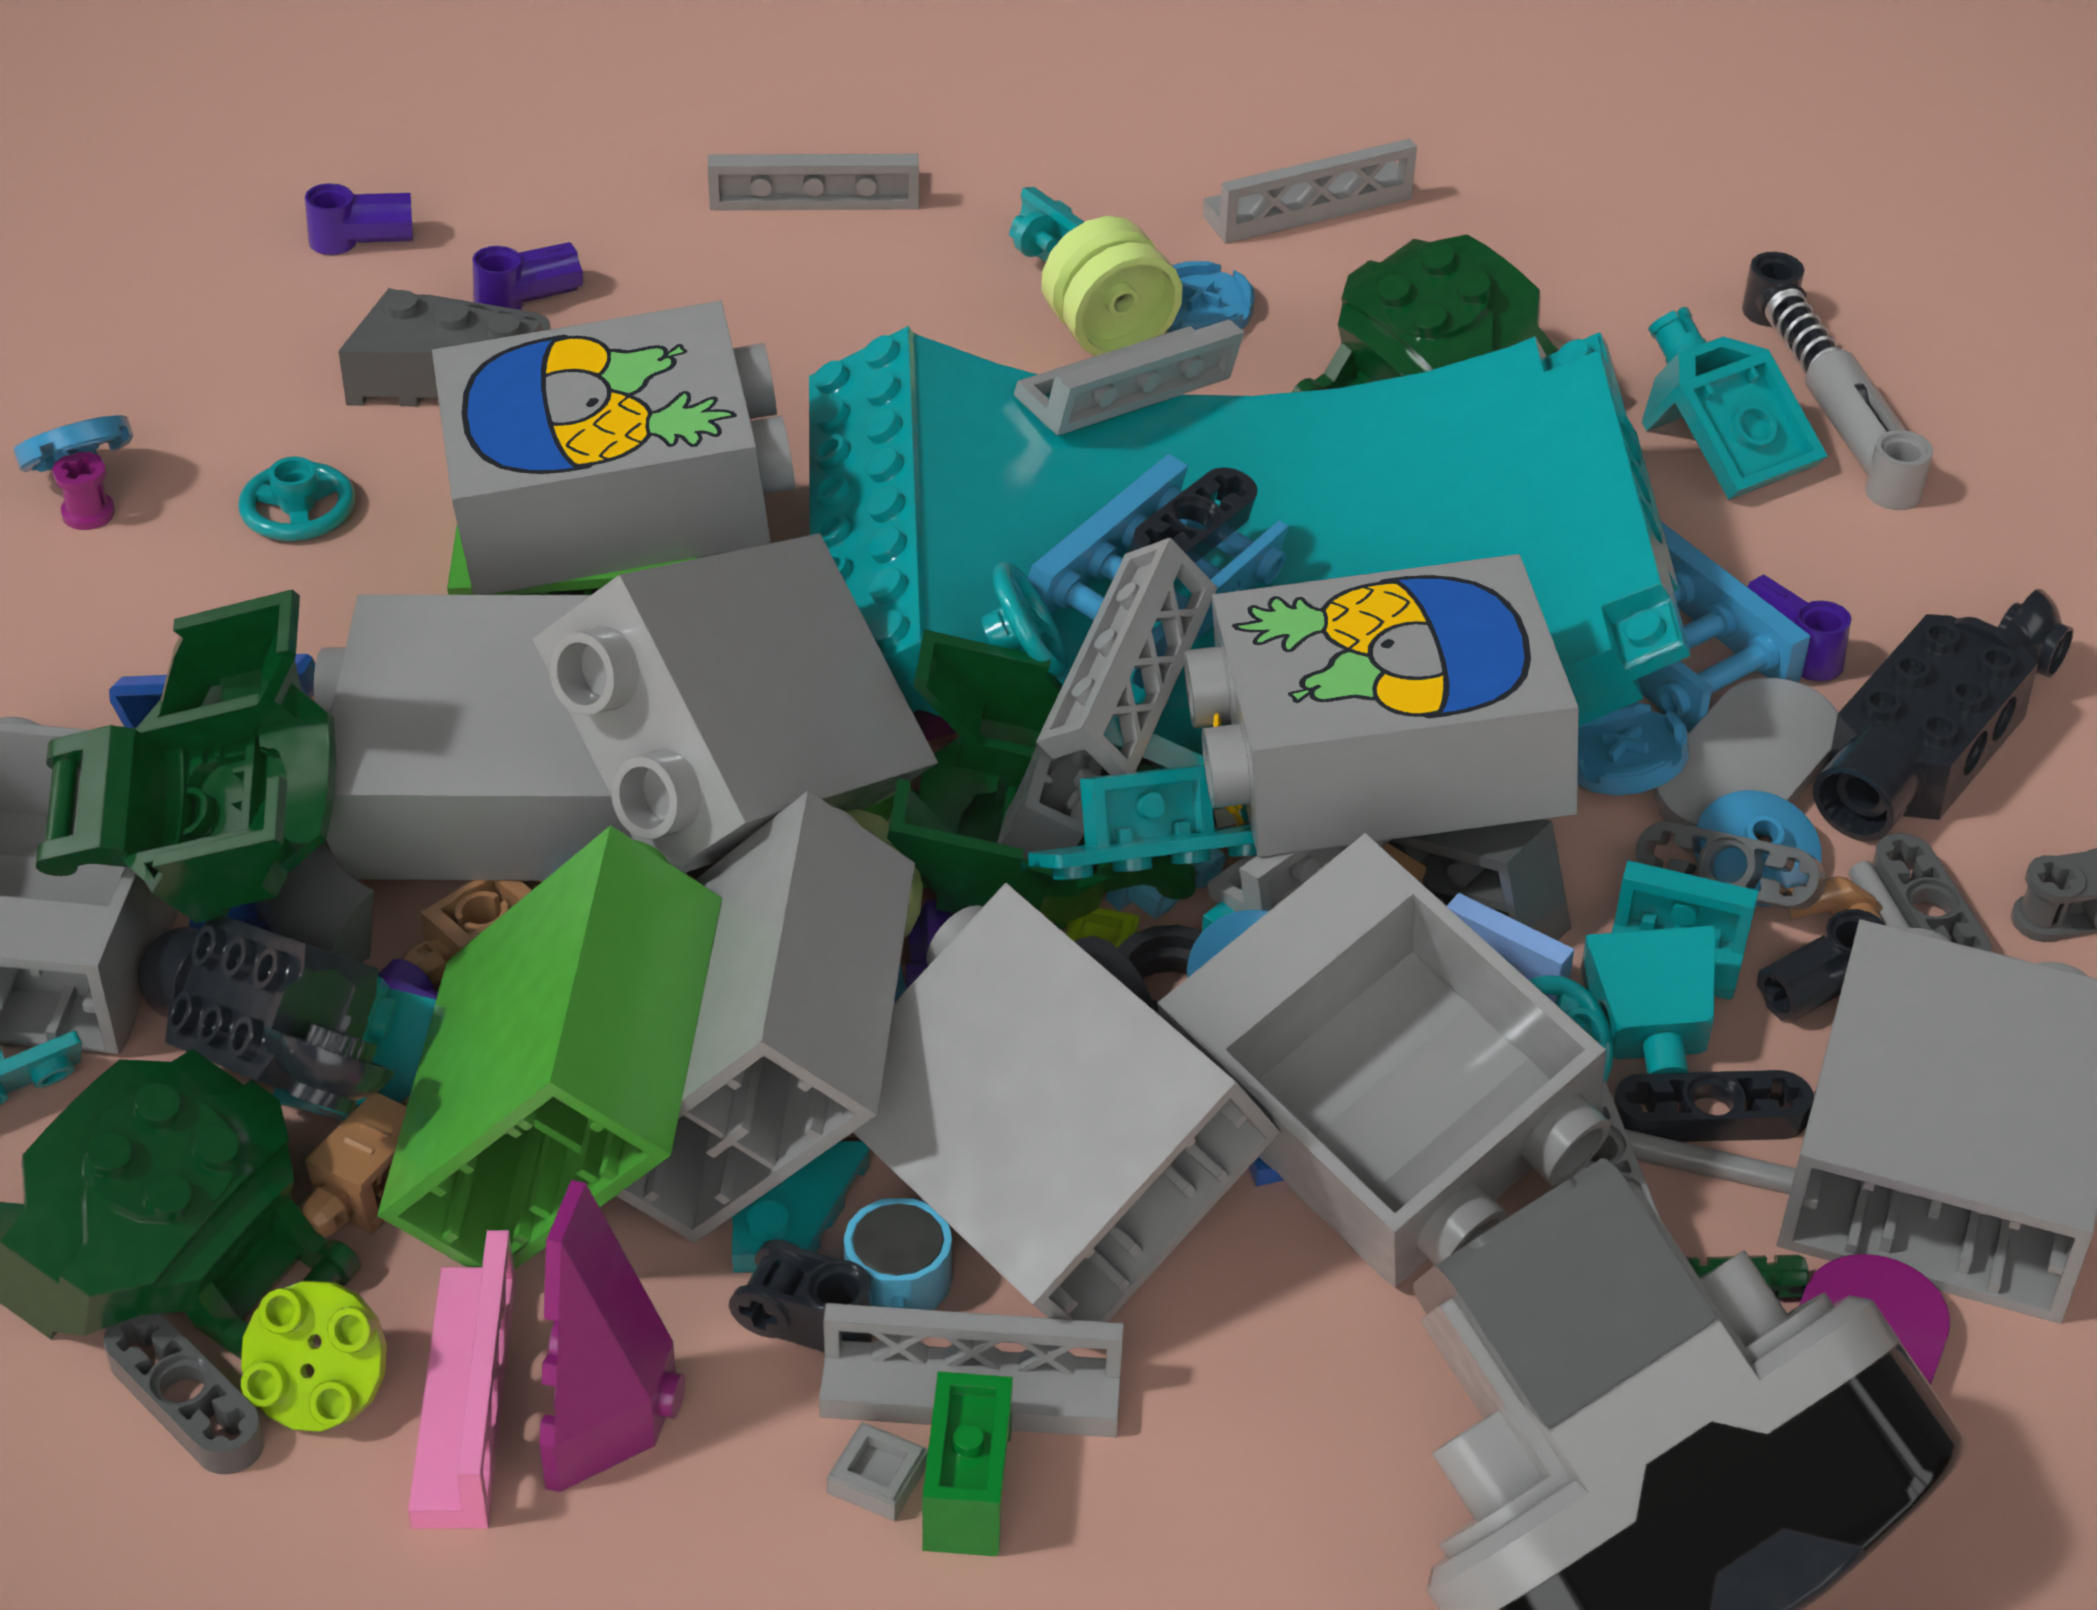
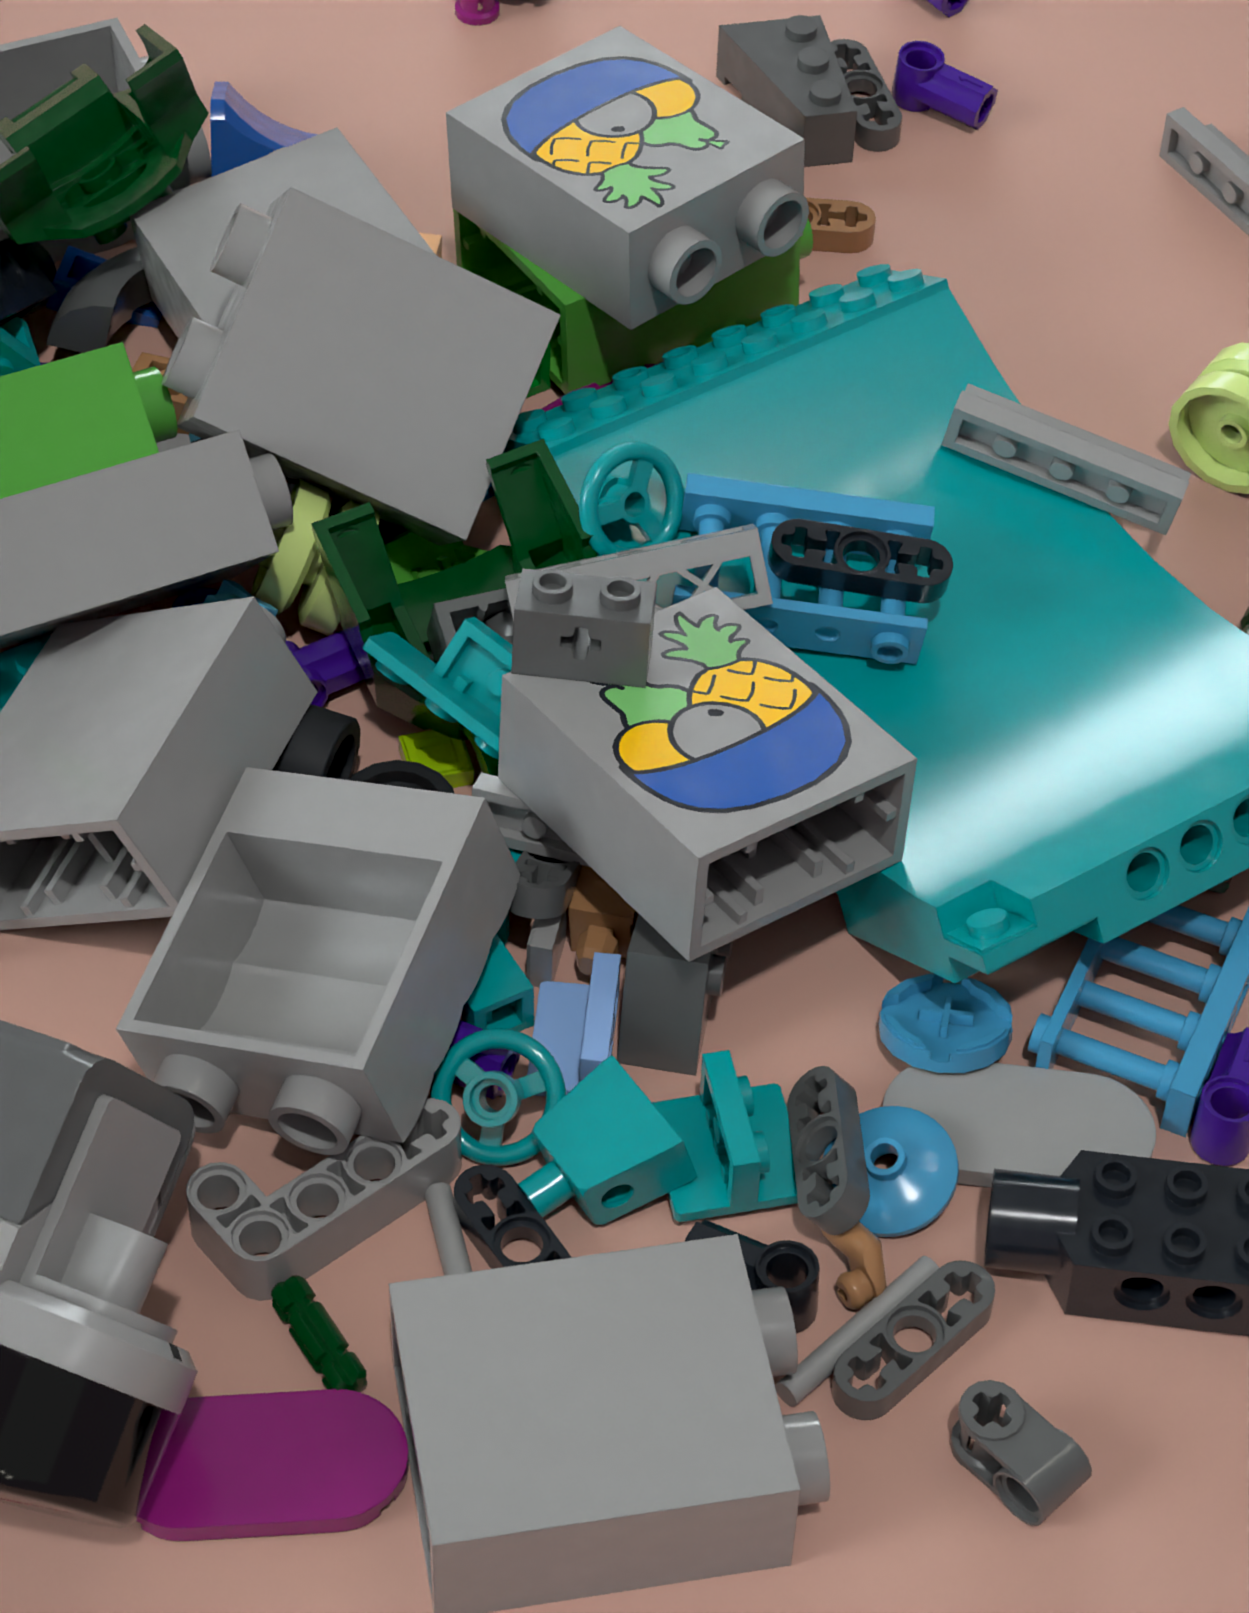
camera: 60 degrees right, 5 degrees up
(1260, 665) = (583, 627): none -> dark grey brick

